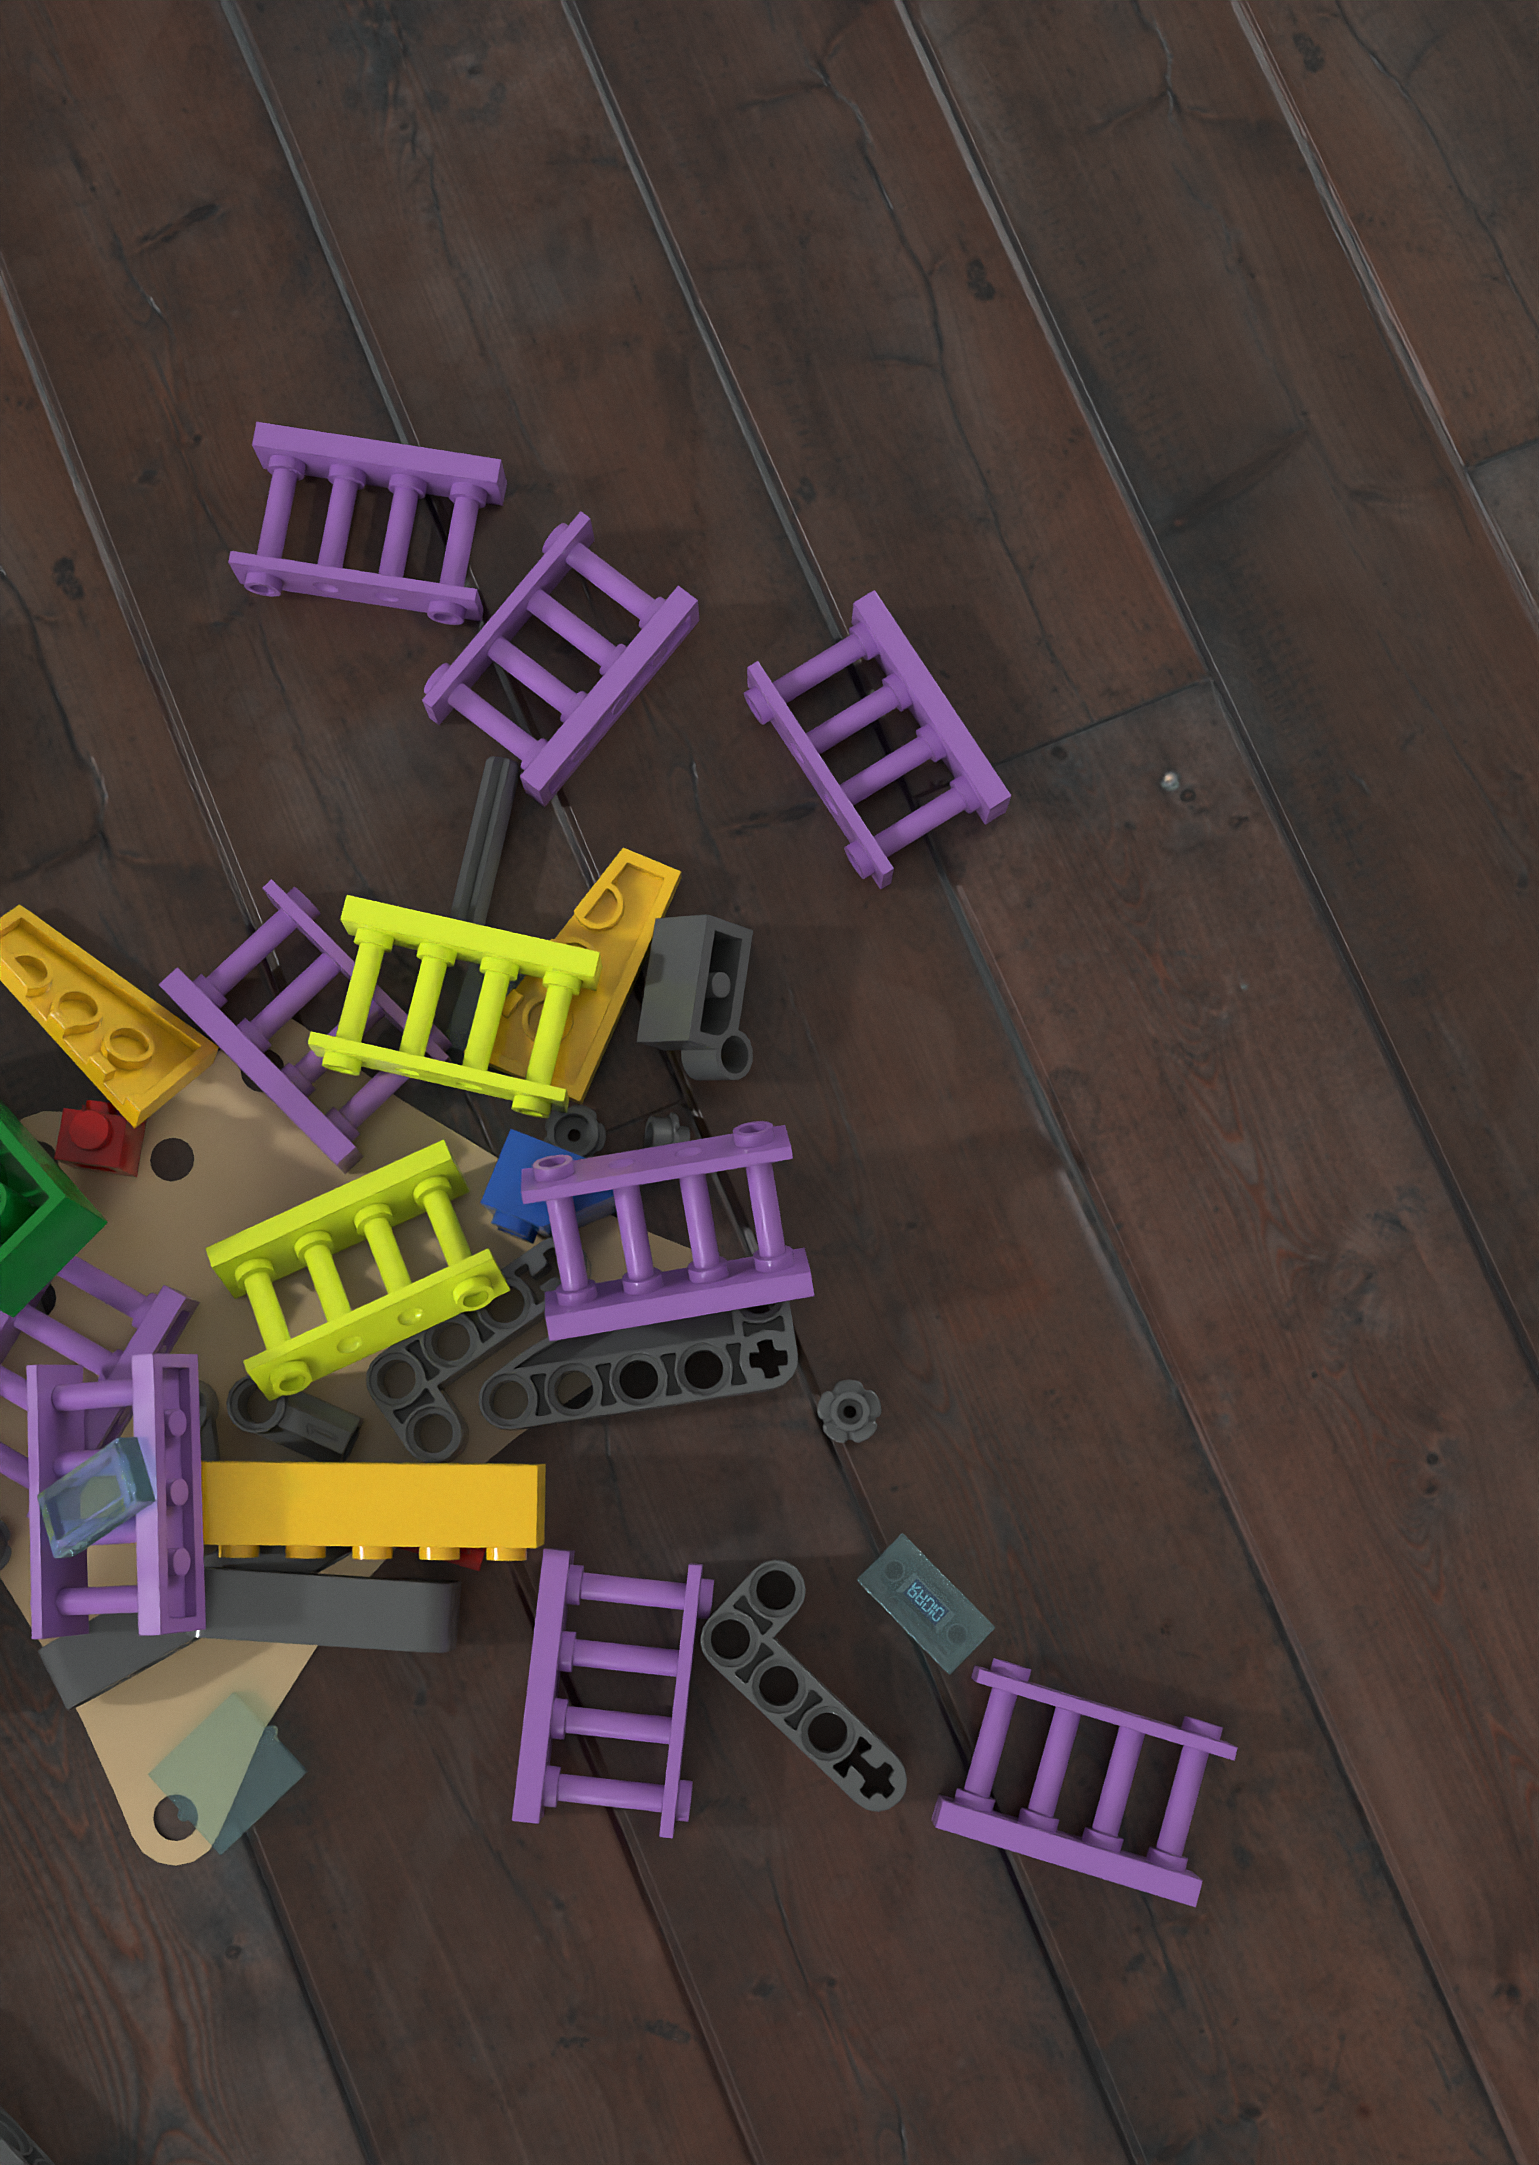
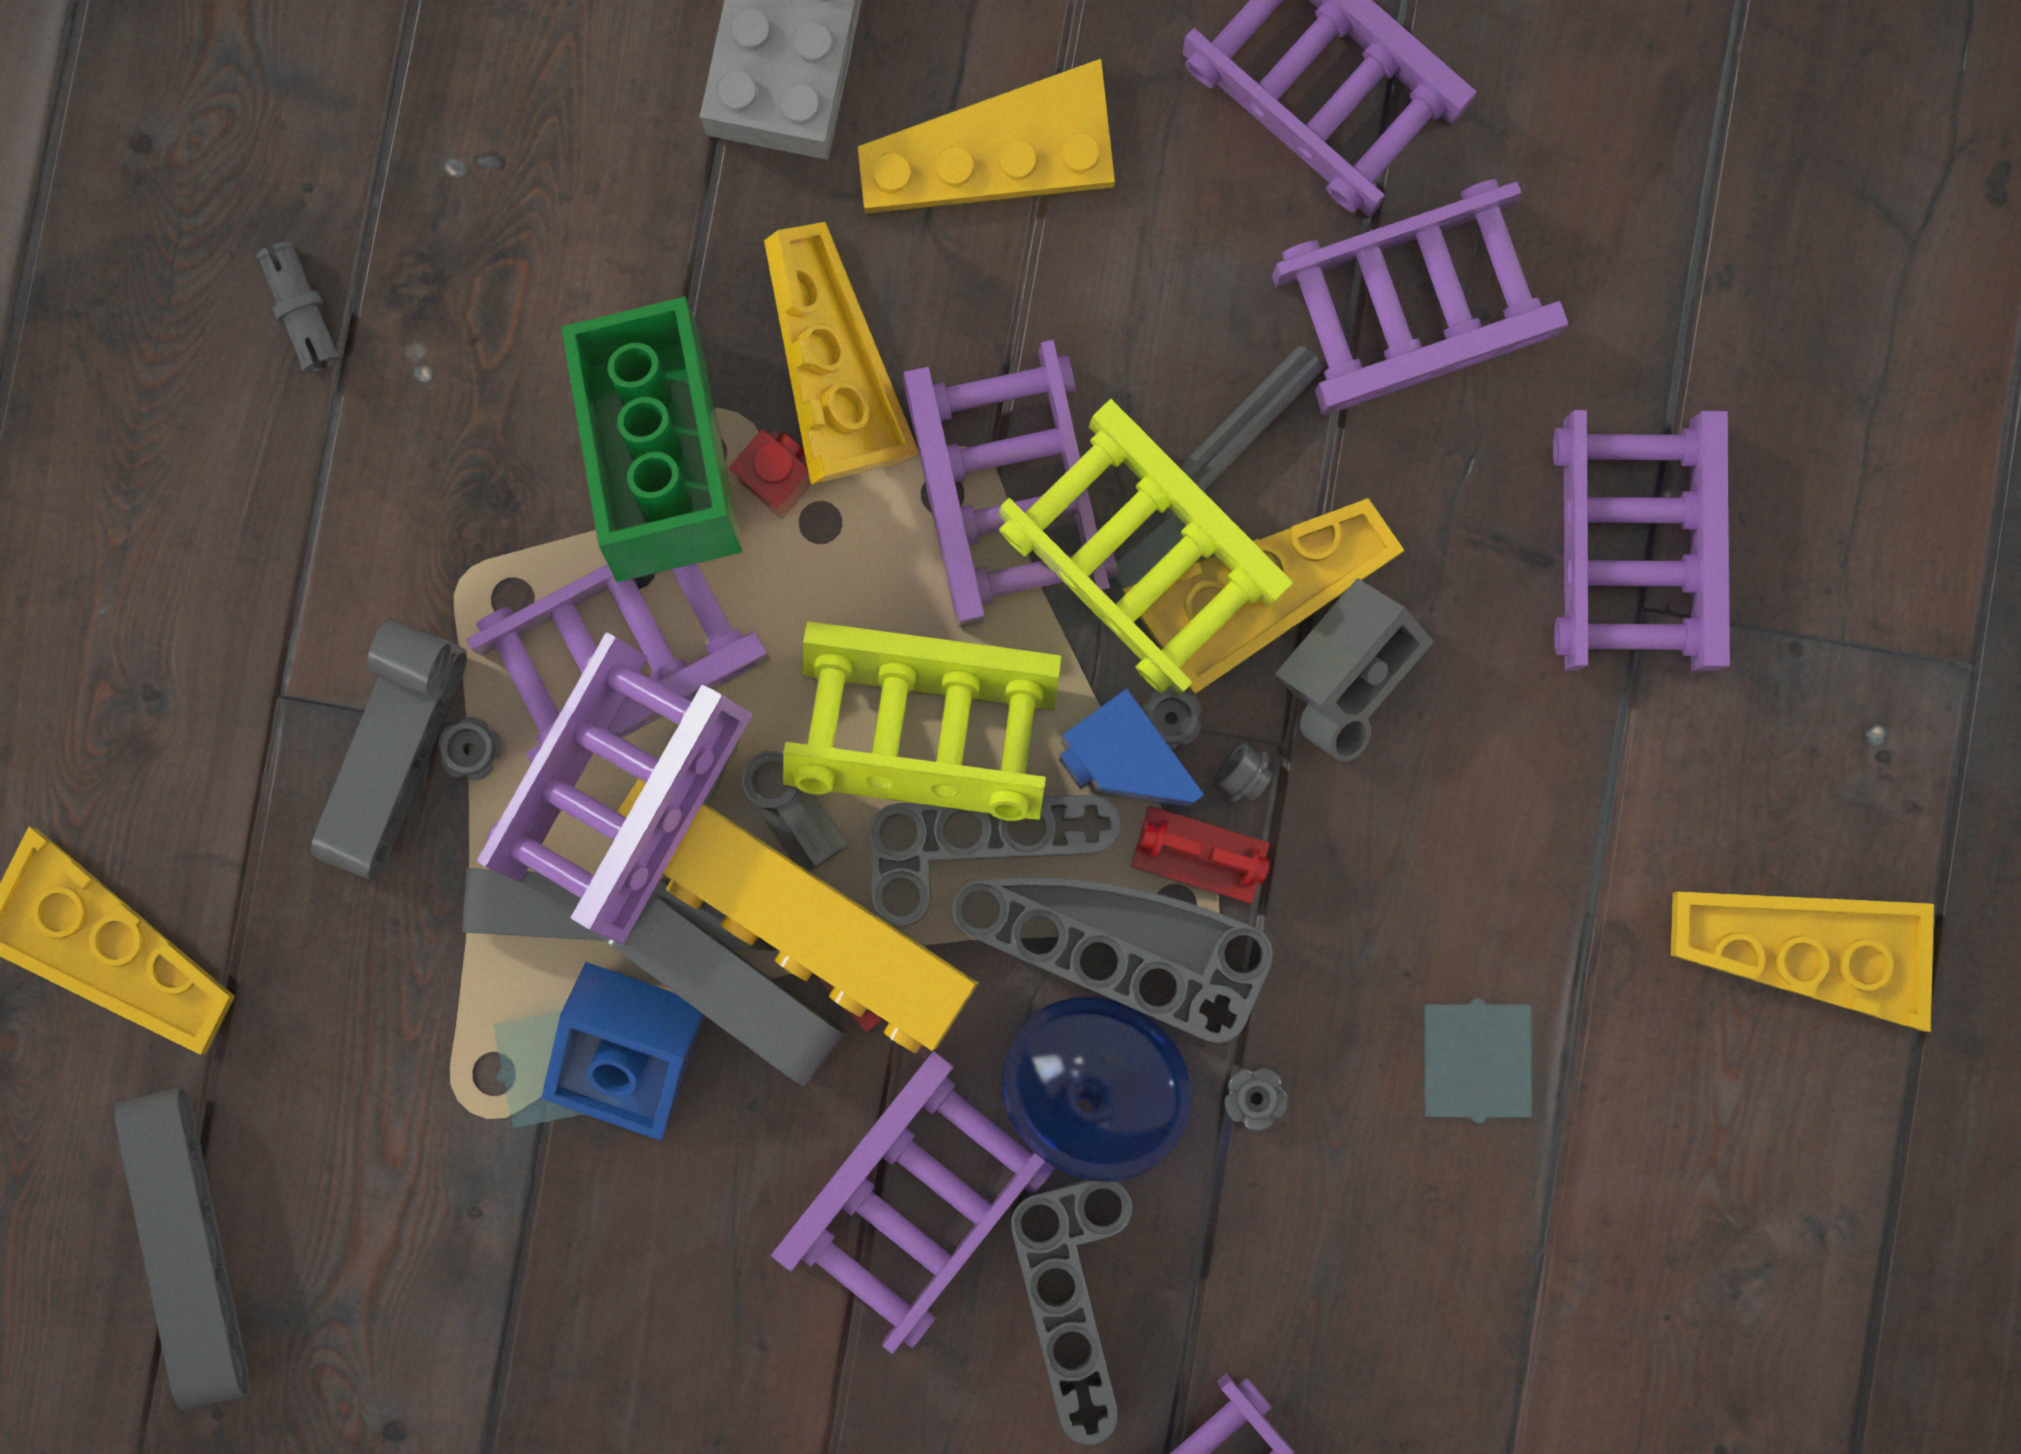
camera: 30 degrees right, 5 degrees up
(96, 1497) = (601, 781): clear light blue tile -> none
(136, 749) = (1006, 147): none -> yellow wing
(292, 1715) = (641, 1052): none -> blue slope
(644, 1292) = (1208, 920): medium lavender fence -> none
(670, 1236) = (1201, 855): none -> red hinge
(699, 1460) = (1114, 1062): none -> clear blue dish
(925, 1603) = (1218, 1296): clear light blue tile -> none
(1016, 1260) = (1477, 1060): none -> clear light blue piece
(1246, 980) = (1830, 950): none -> yellow wing

